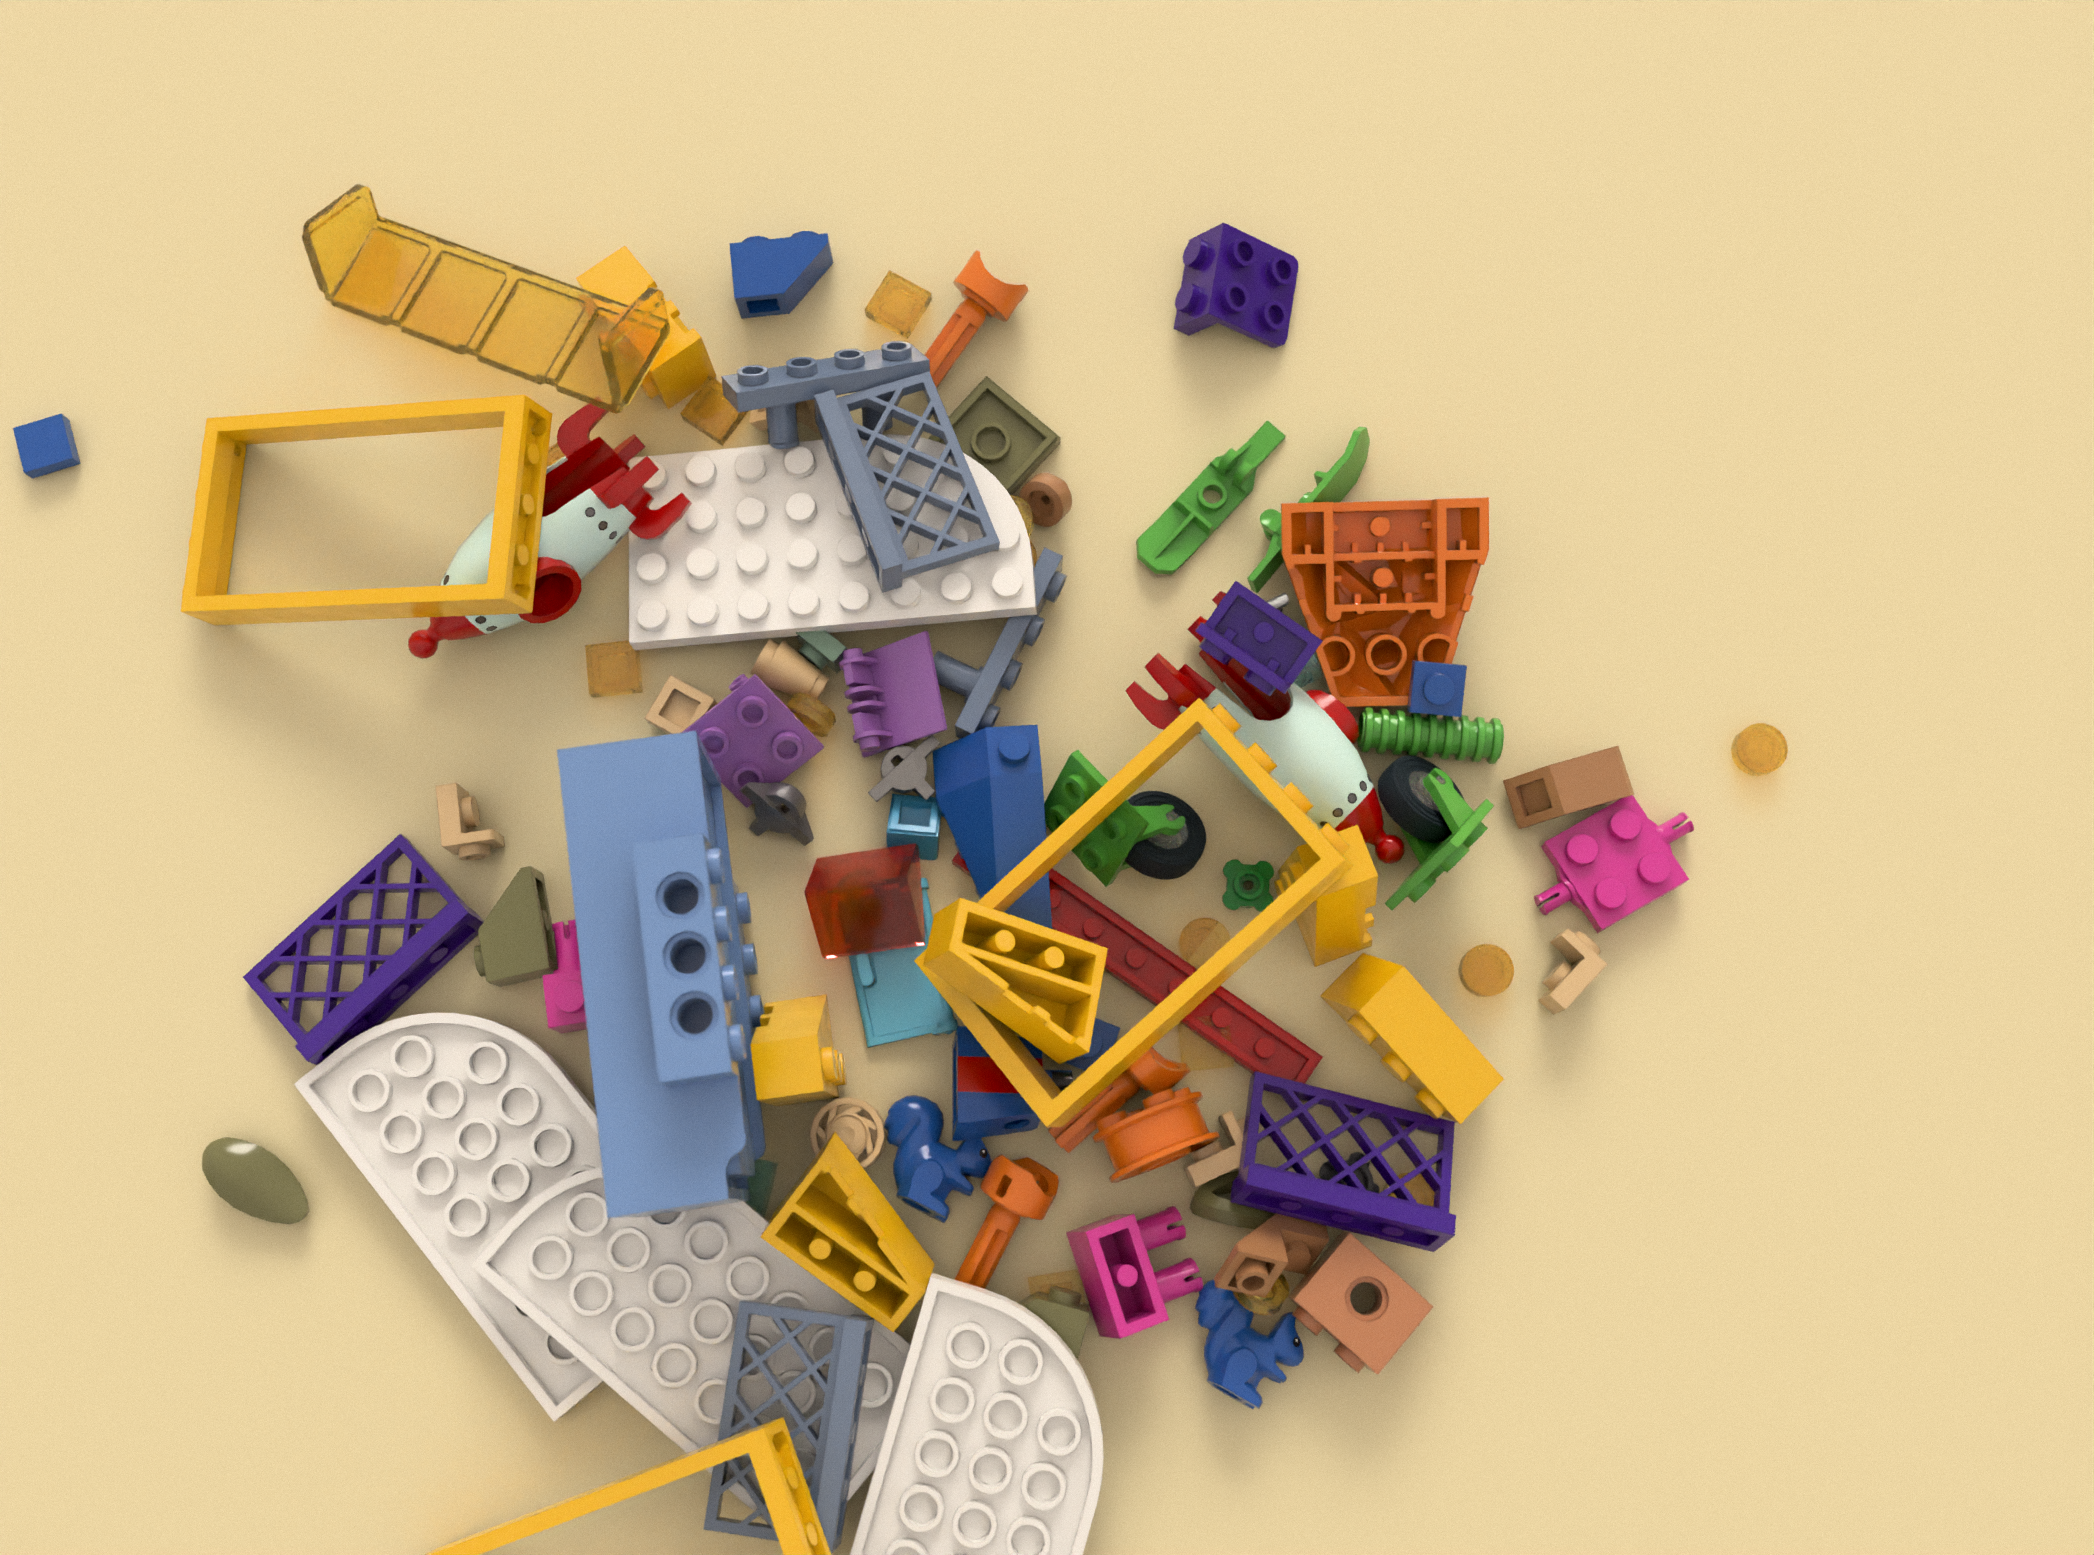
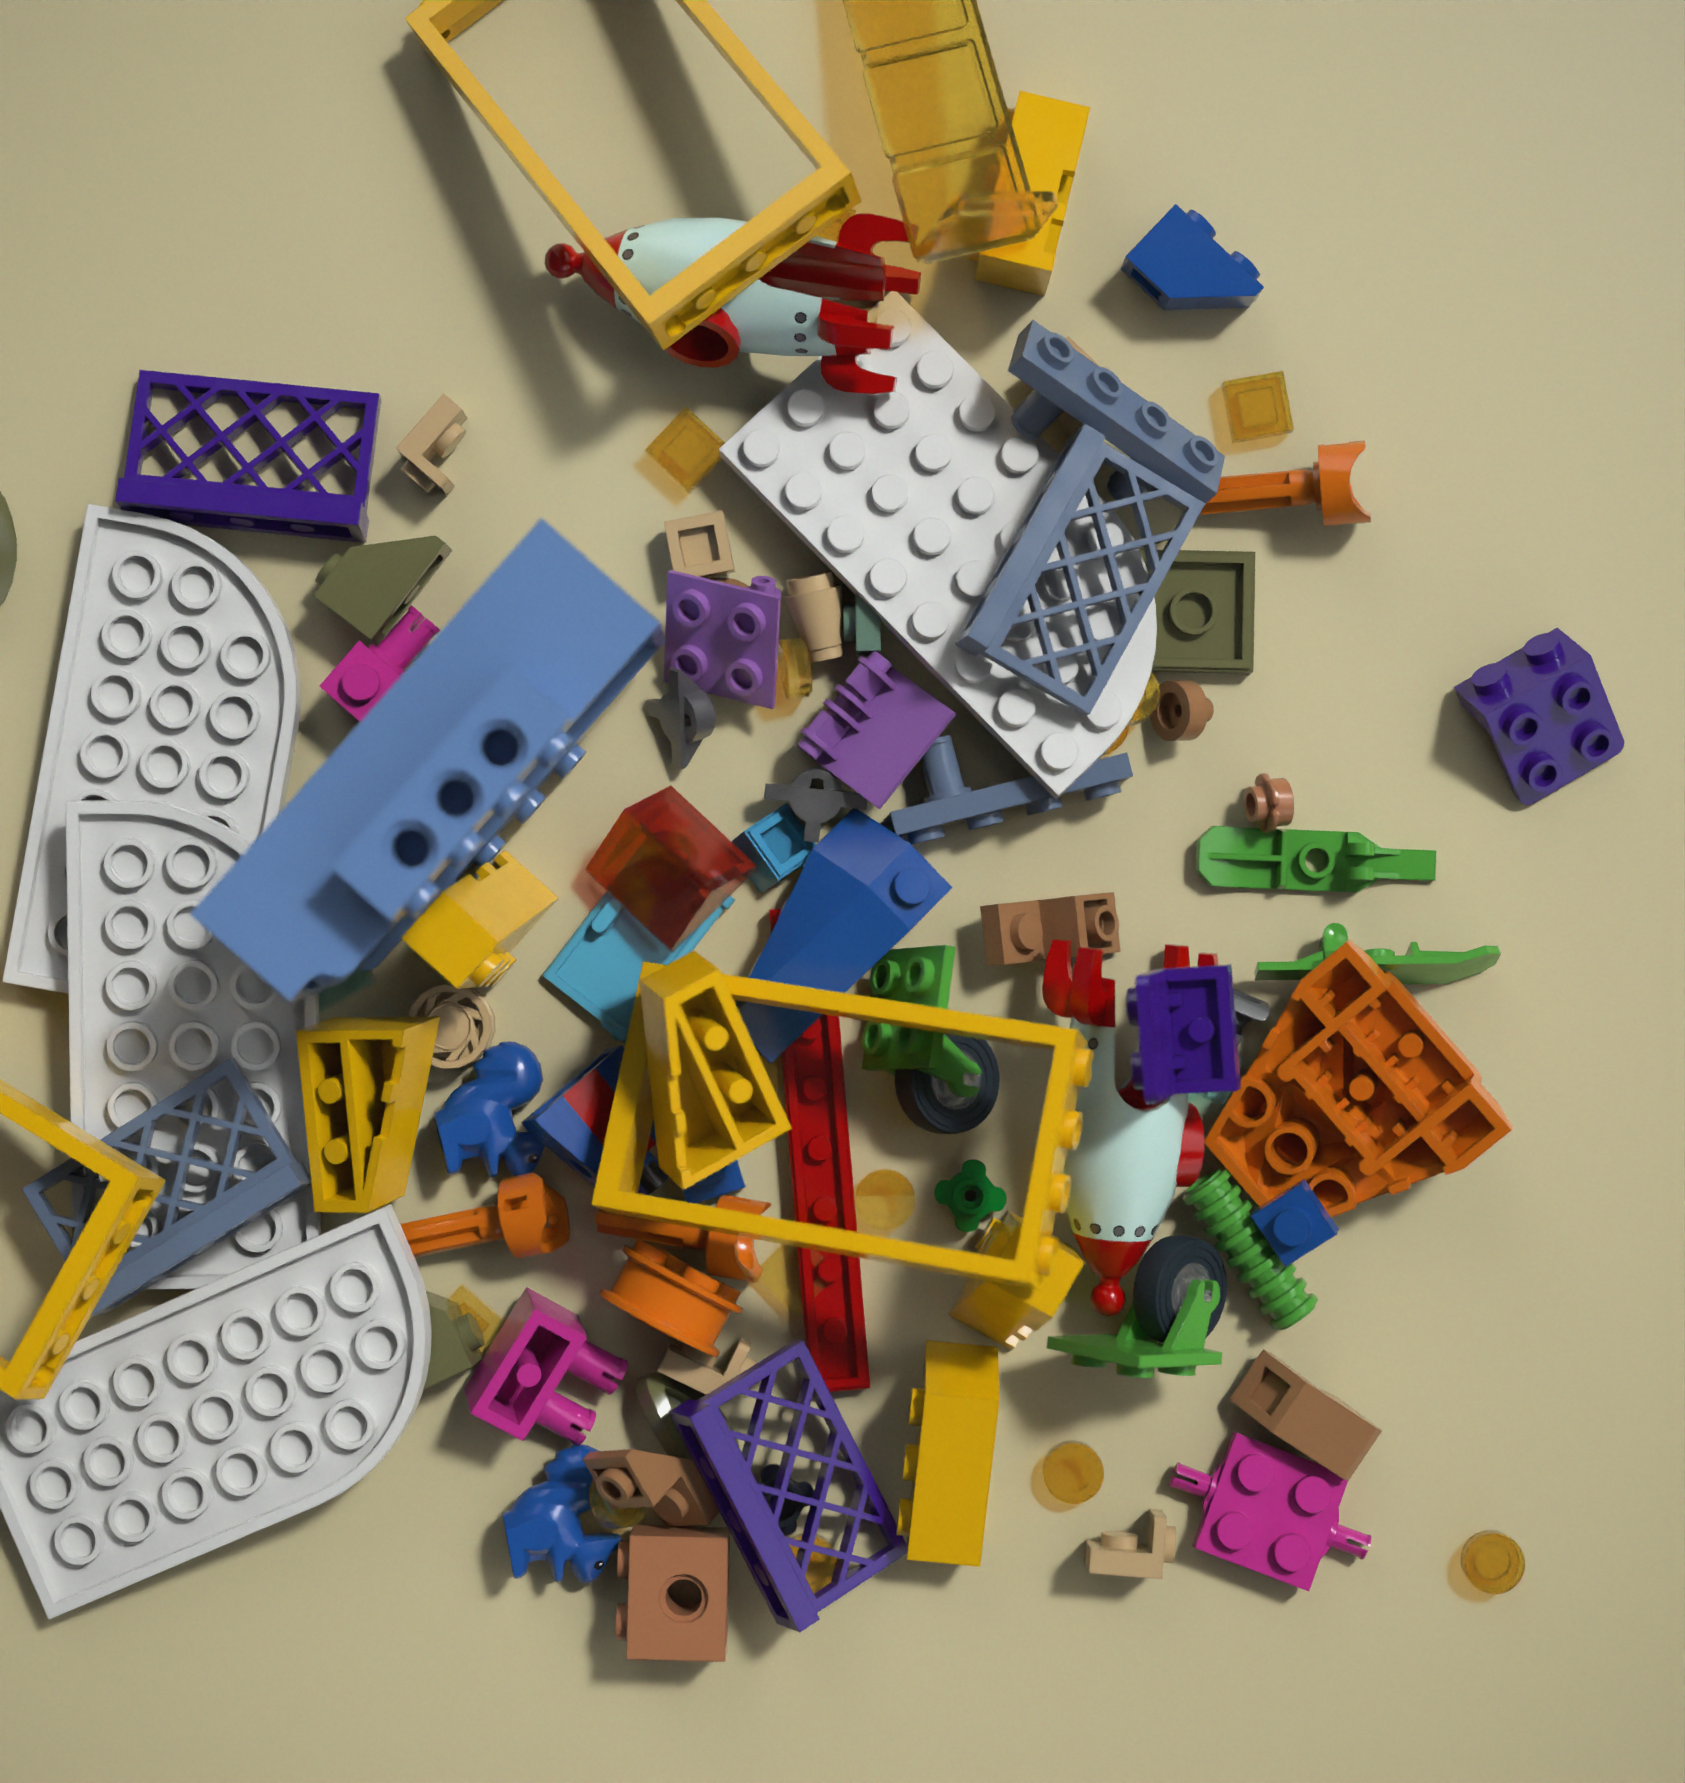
camera: 50 degrees right, 10 degrees up
(712, 412) = (1002, 320): clear yellow tile -> none
(1106, 705) = (1026, 929): none -> medium nougat slope
(1151, 492) = (1269, 803): none -> nougat plate

